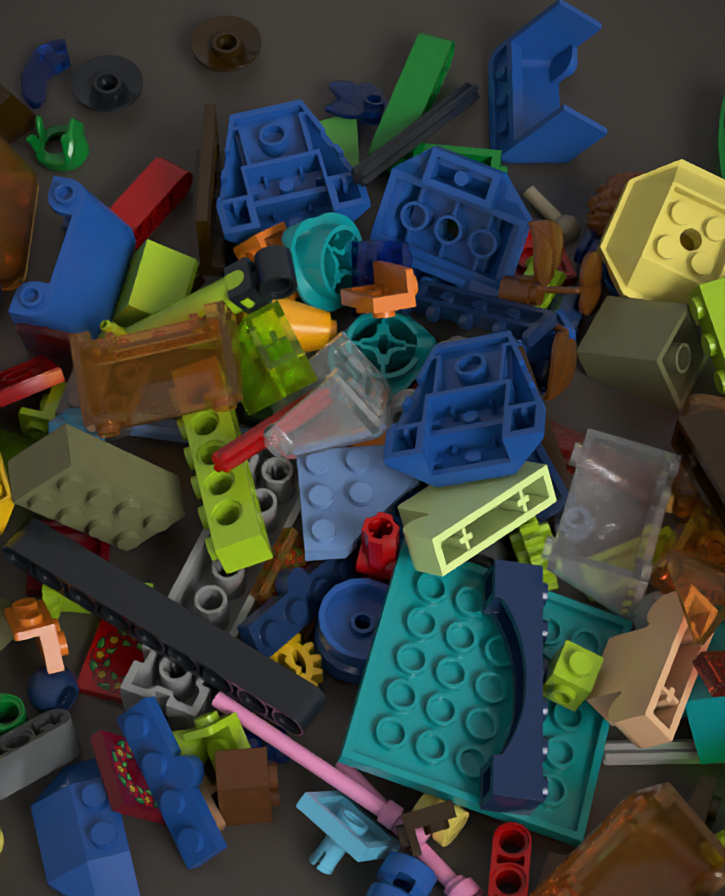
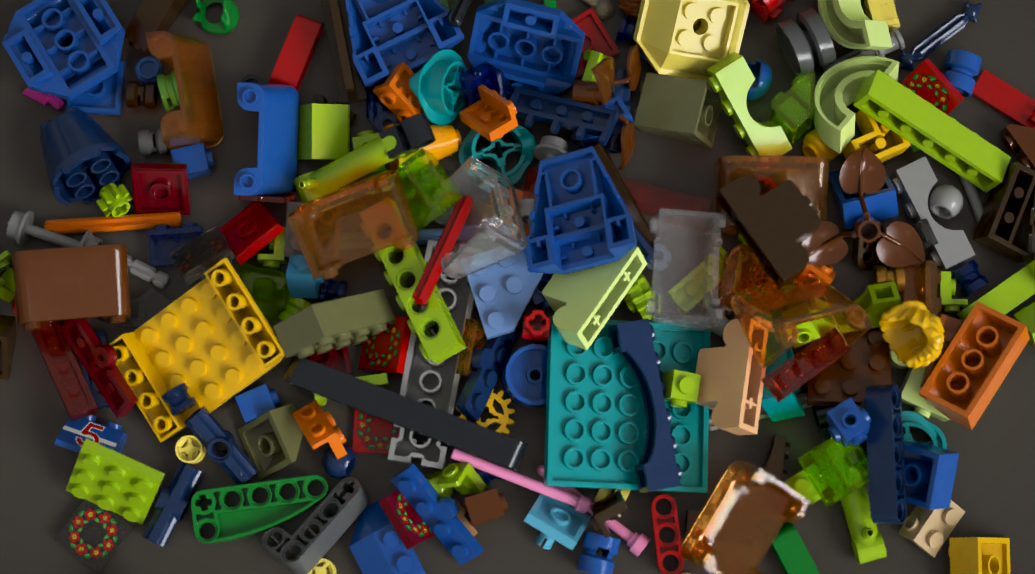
camera: 15 degrees left, 25 degrees up
(165, 553) = (387, 349): none -> red tile

